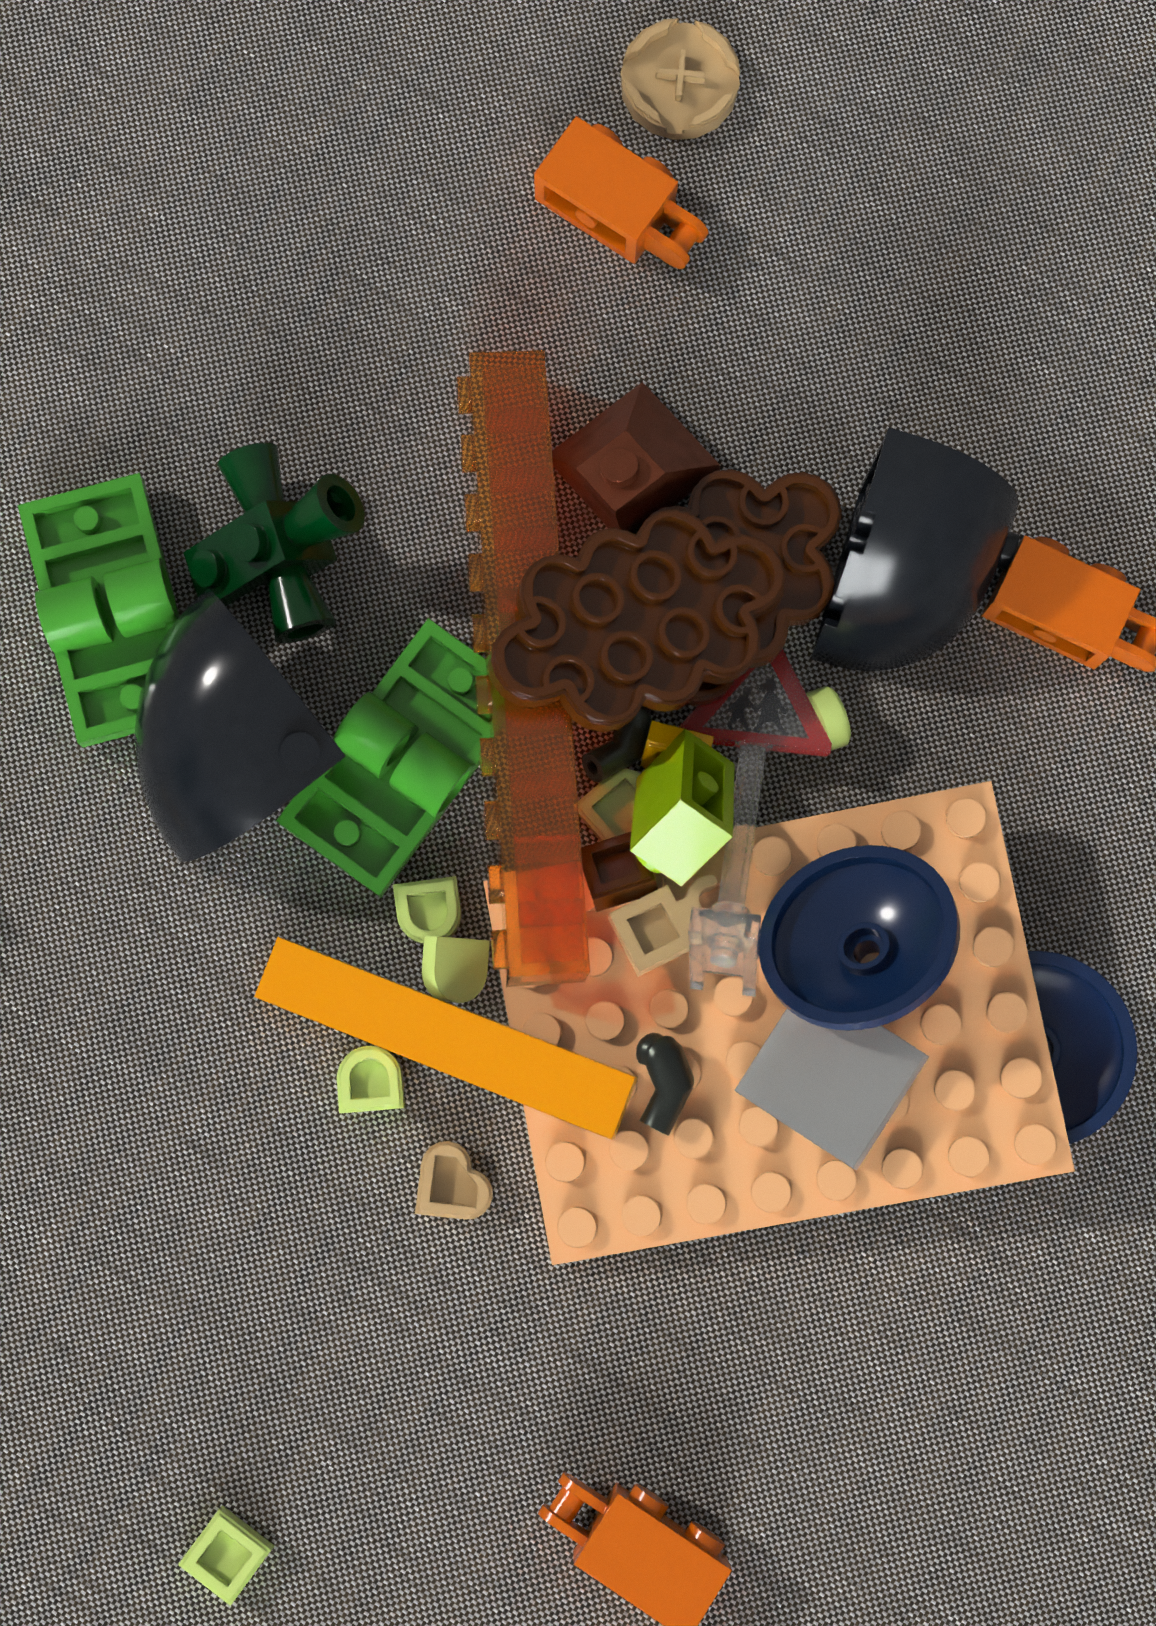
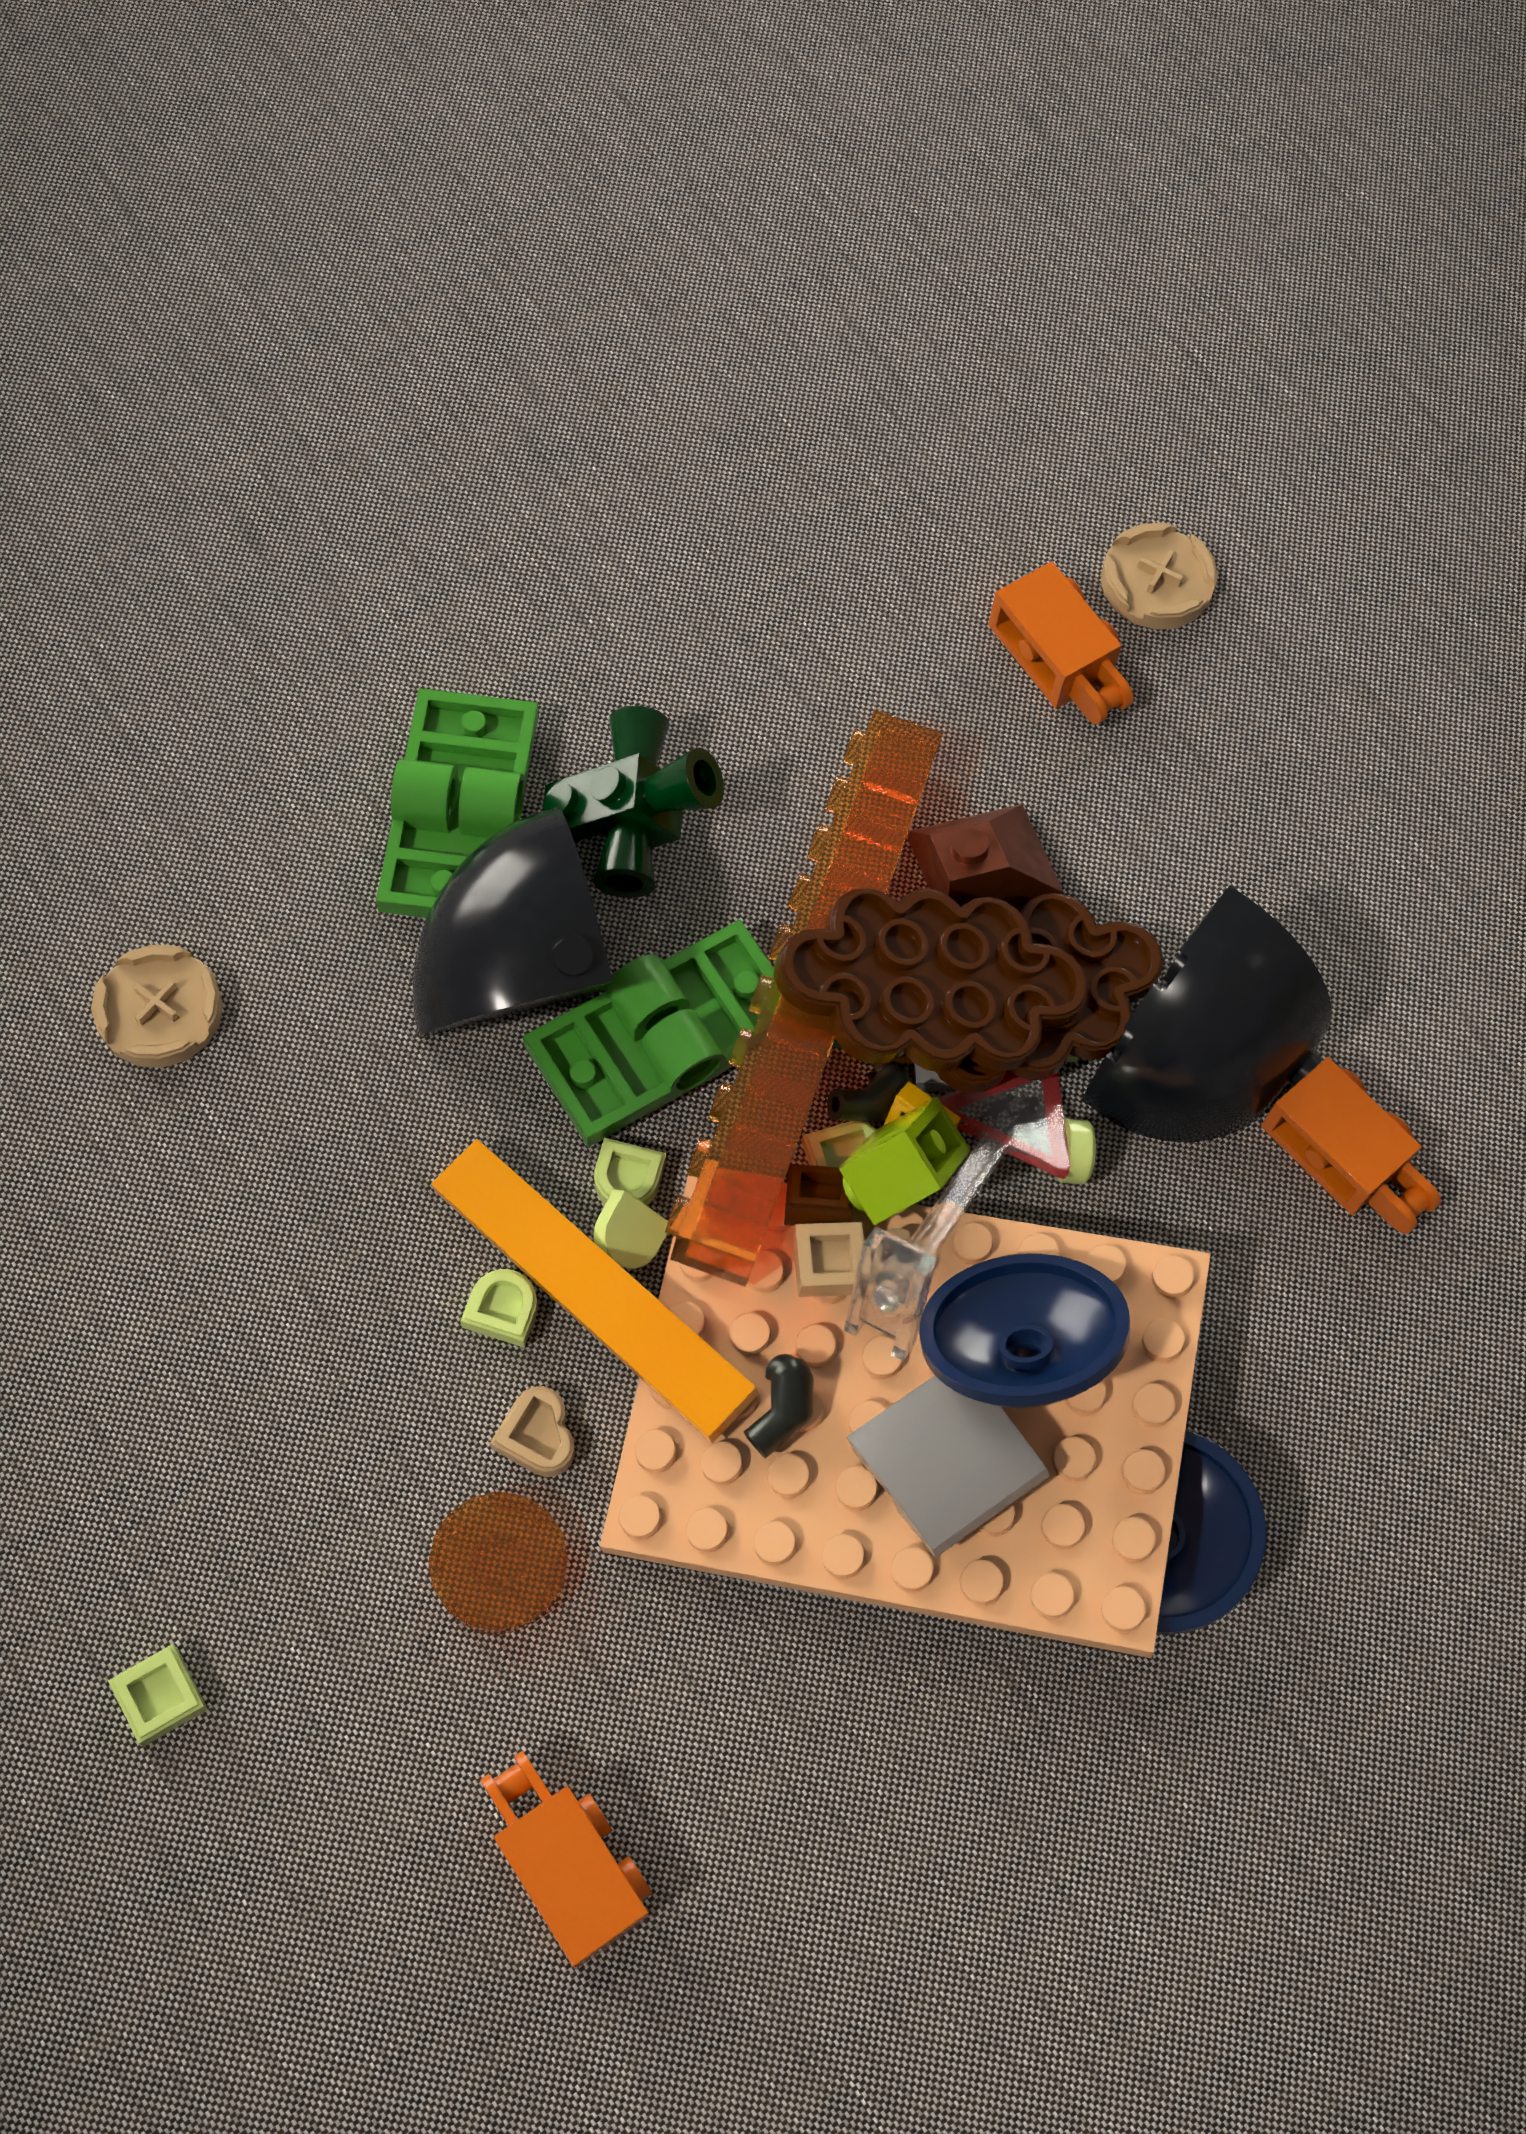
camera: 20 degrees right, 15 degrees down
(469, 1315) = (498, 1562): none -> clear orange tile

